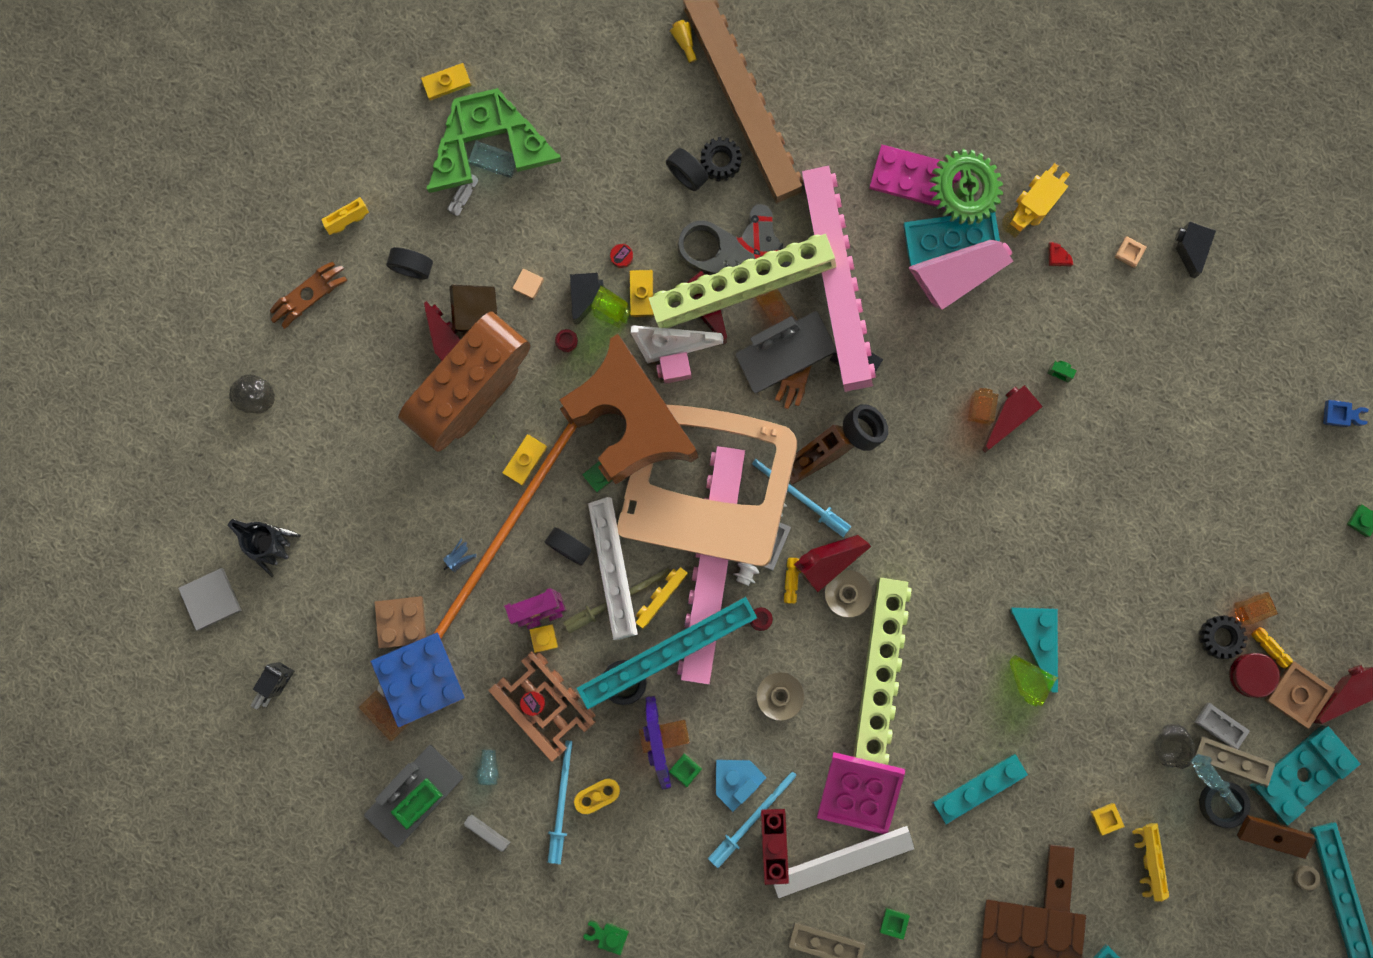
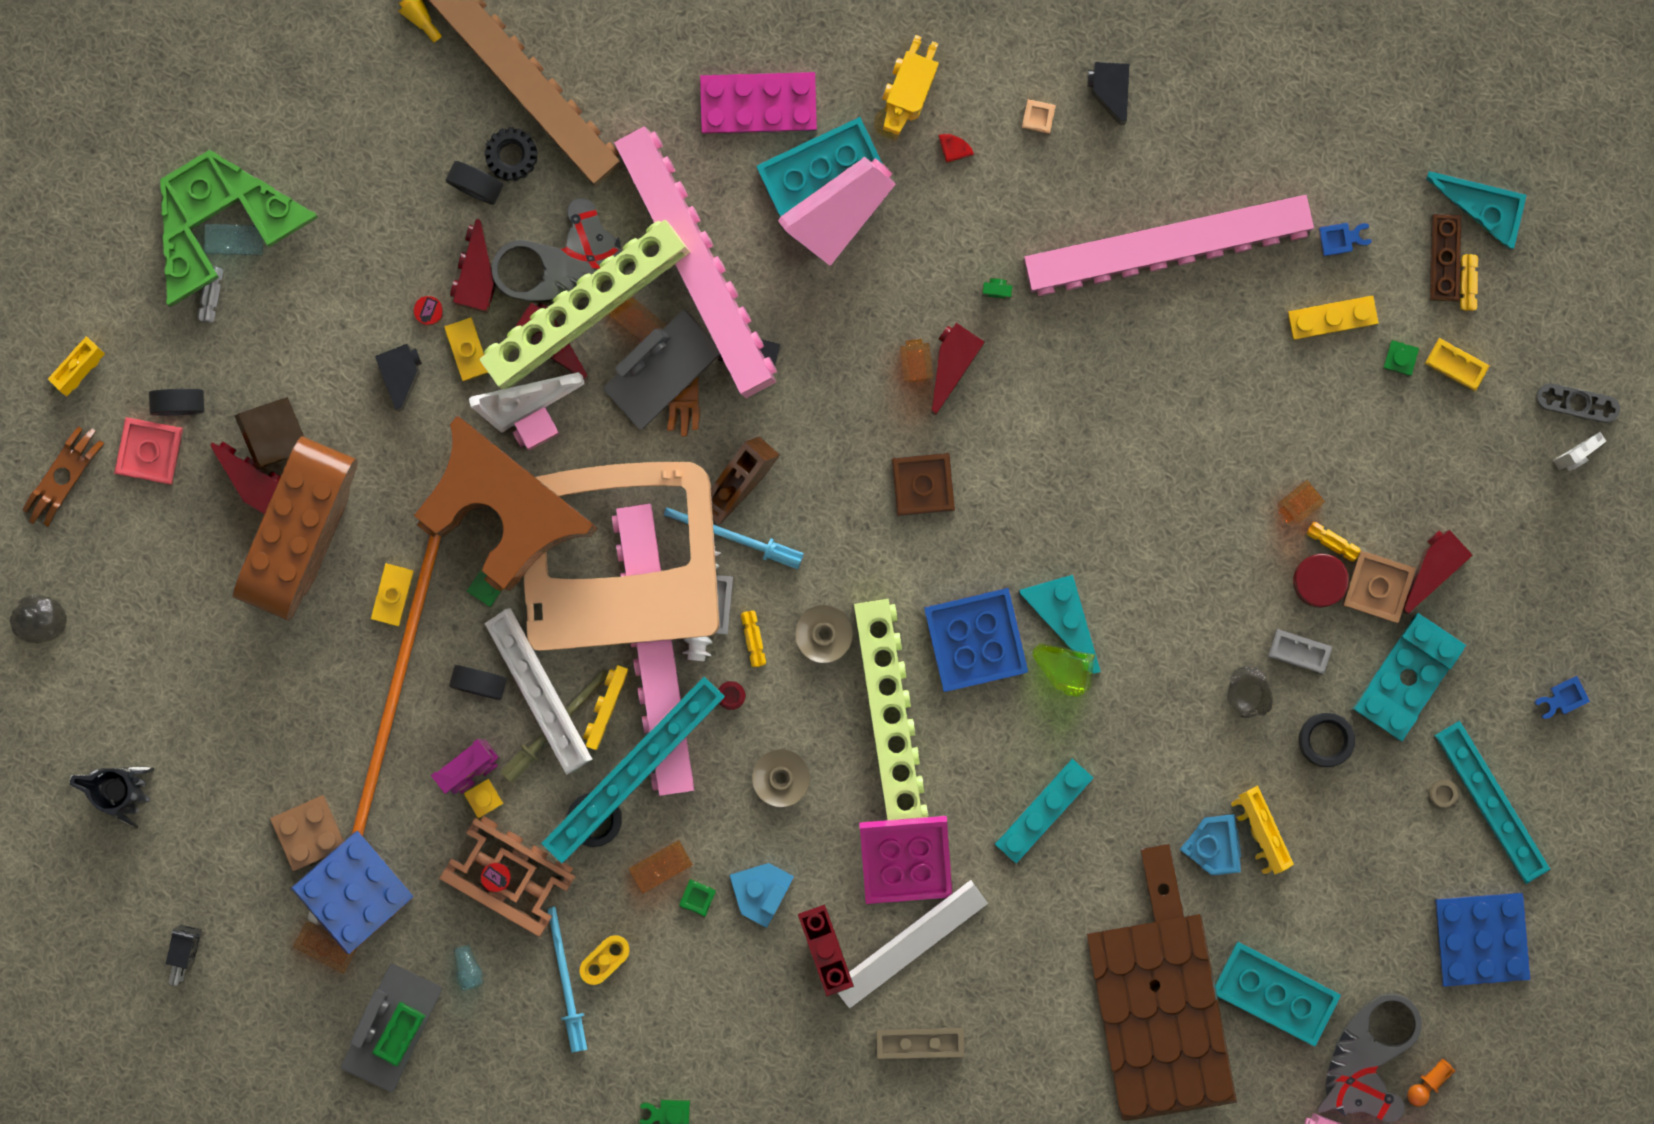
camera: 25 degrees left, 5 degrees up
(209, 599) = (72, 877): light grey tile -> none
(378, 295) = (148, 451): none -> coral tile
(446, 81) = (142, 158): yellow plate -> none
(453, 559) = (349, 738): flat silver piece -> none
(486, 833) = (490, 1042): light grey tile -> none
(528, 284) = (326, 380): light nougat tile -> none
(566, 340) = (395, 435): dark red plate -> none
(610, 307) = (436, 381): clear neon green slope -> none
(653, 734) = (646, 867): dark purple wing -> none
(663, 246) = (476, 280): none -> dark red slope
(729, 845) = (774, 965): medium azure piece -> none
(828, 561) = (788, 603): dark red slope -> none
(855, 433) = (773, 443): black tyre -> none
(894, 923) = (990, 994): green plate -> none
(959, 502) = (923, 484): none -> reddish brown tile
(966, 187) = (805, 76): bright green gear -> none
(966, 636) = (976, 640): none -> blue plate
(1107, 819) = (1198, 799): yellow plate -> none
(1110, 861) = (1215, 845): none -> dark azure plate
(1206, 377) = (1168, 244): none -> bright pink brick
(1213, 780) = (1302, 717): clear light blue piece -> none
(1237, 637) = (1278, 530): black tyre -> none
(1237, 762) = (1323, 688): dark tan plate -> none
(1276, 836) = (1407, 758): reddish brown tile -> none
(1318, 473) = (1333, 317): none -> yellow plate

